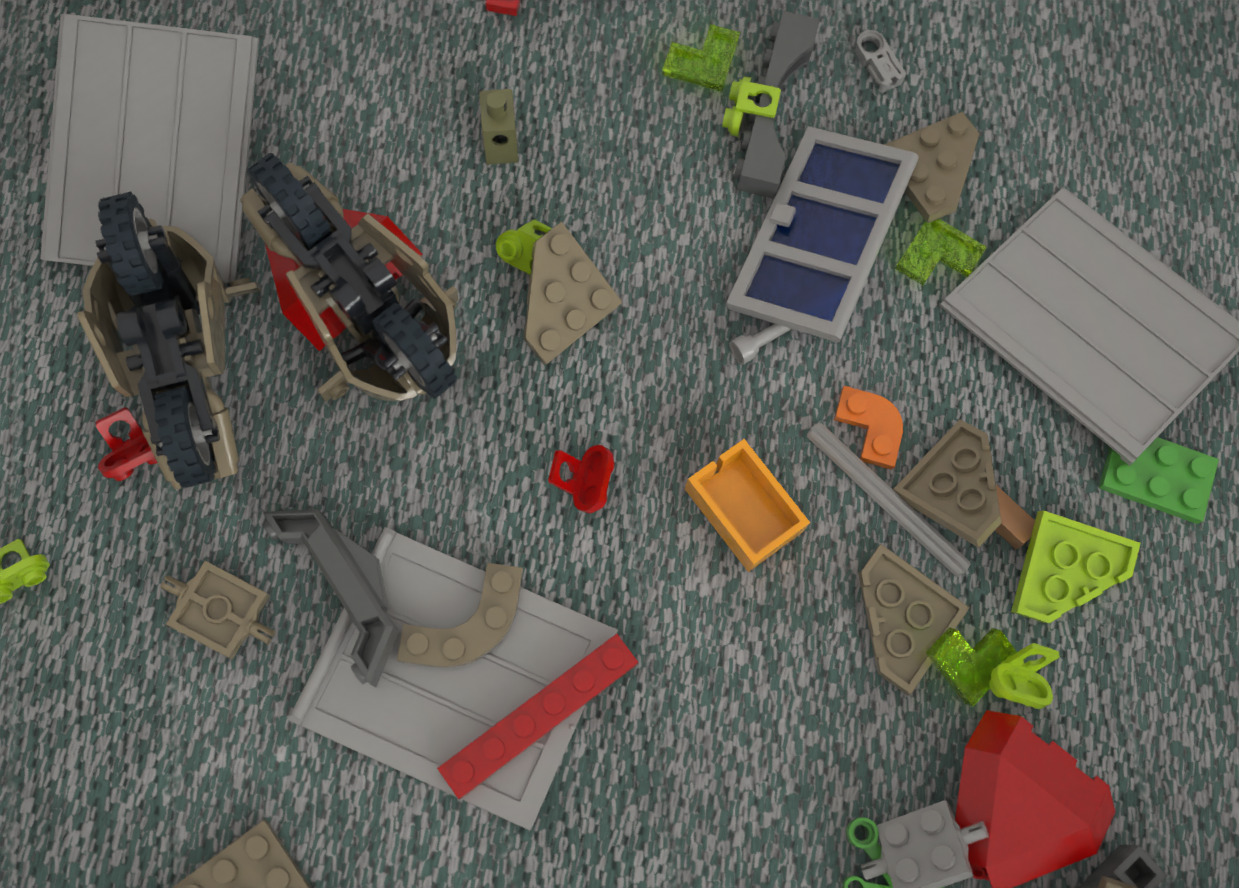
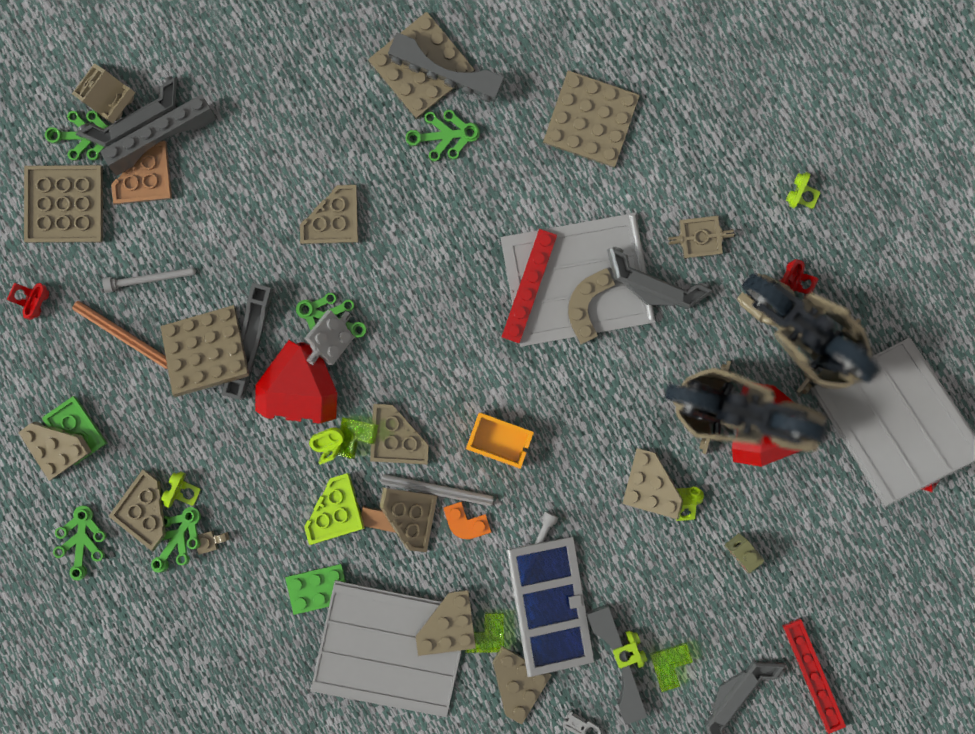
camera: 150 degrees right, 15 degrees up
(589, 477) = (579, 406): red bracket -> none
(992, 294) = (448, 627): none -> dark tan plate

